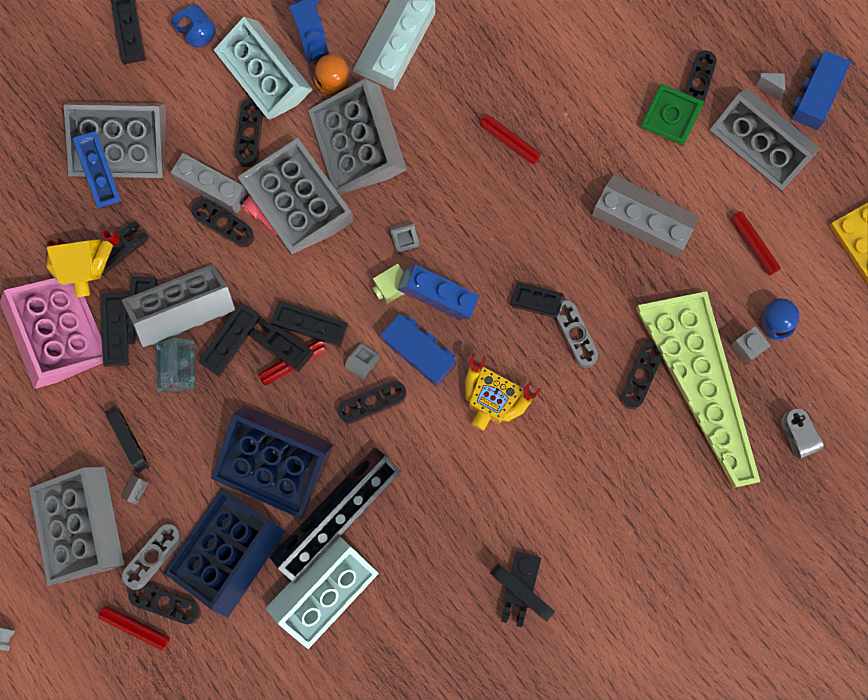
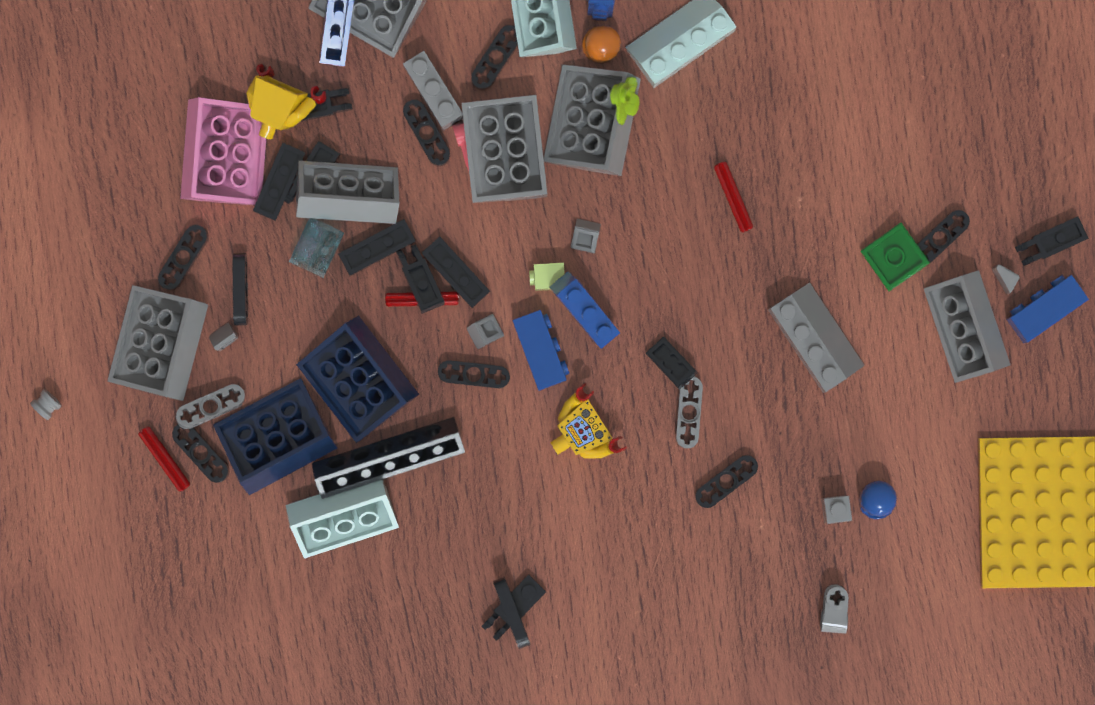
camera: 25 degrees right, 10 degrees up
(55, 432) = (173, 257): none -> black beam
(371, 97) = (625, 99): none -> lime plate
(696, 359) = (782, 491): yellowish green wing -> none
(755, 243) = (900, 418): red axle -> none
(792, 35) = (1055, 240): none -> black hinge

